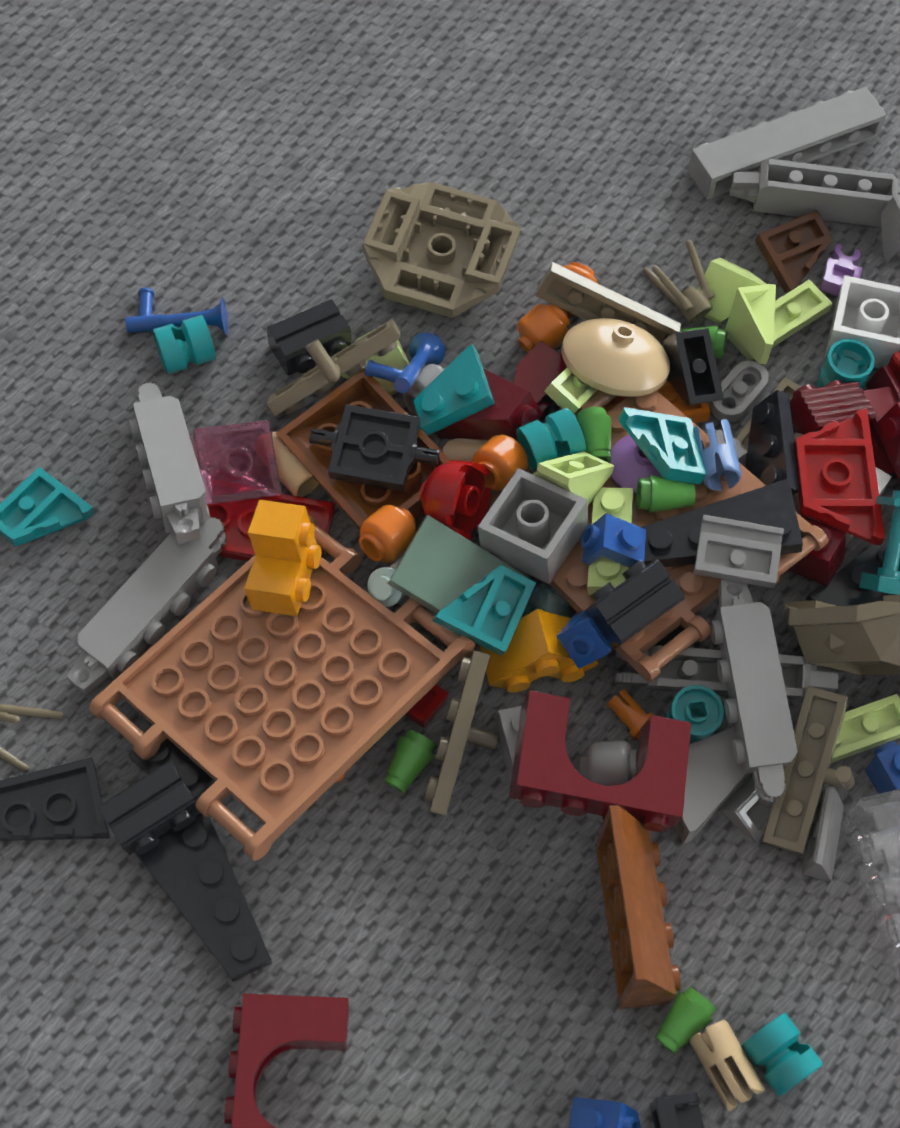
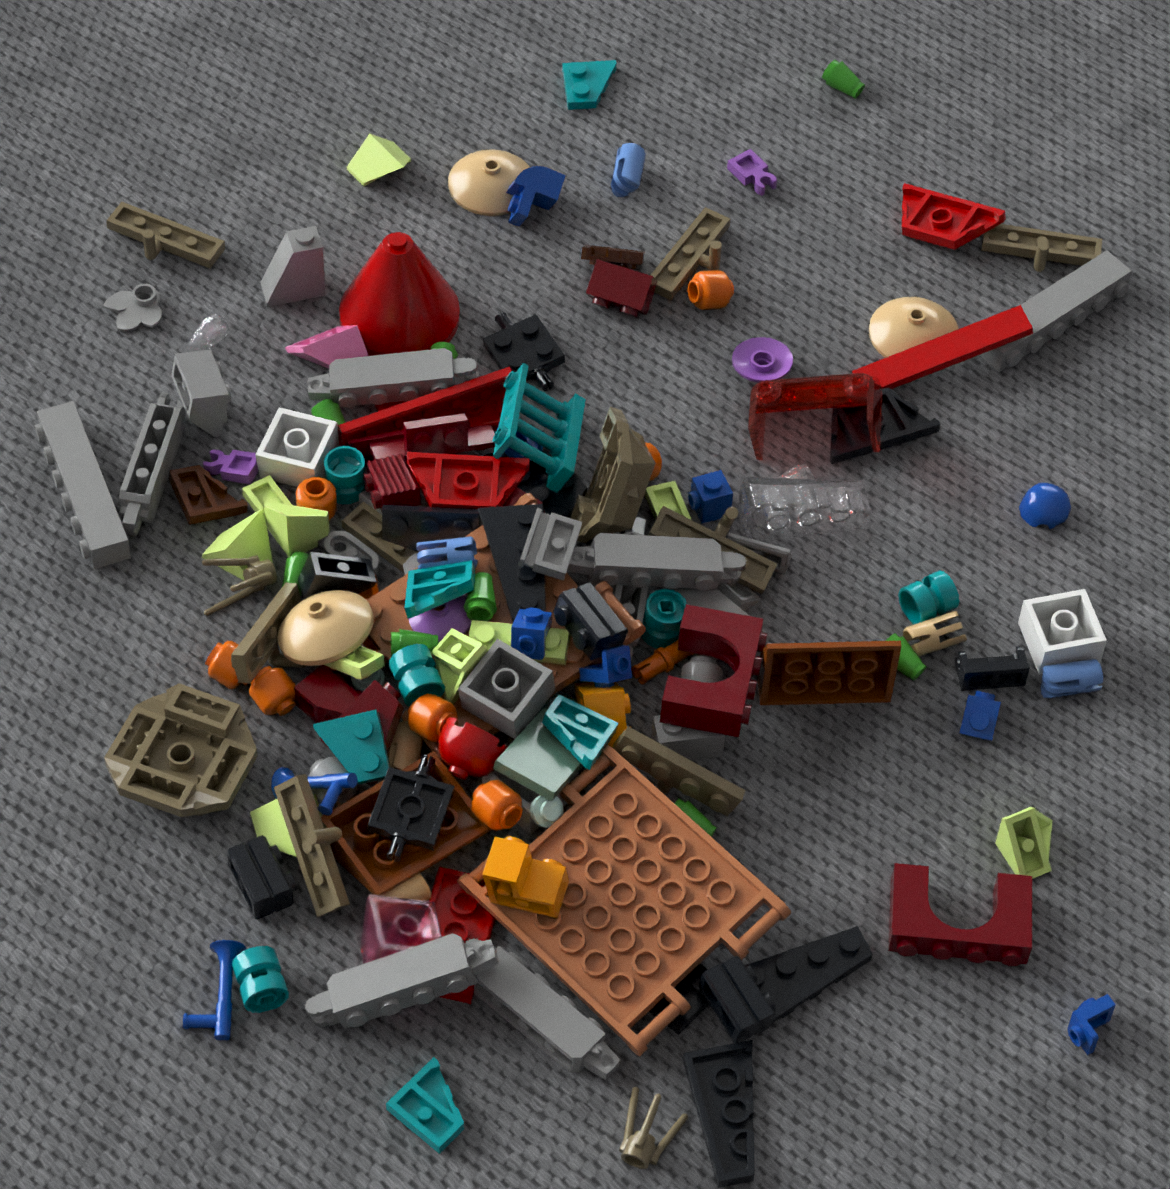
camera: 85 degrees left, 10 degrees down
(803, 347) = (317, 494): none -> orange head

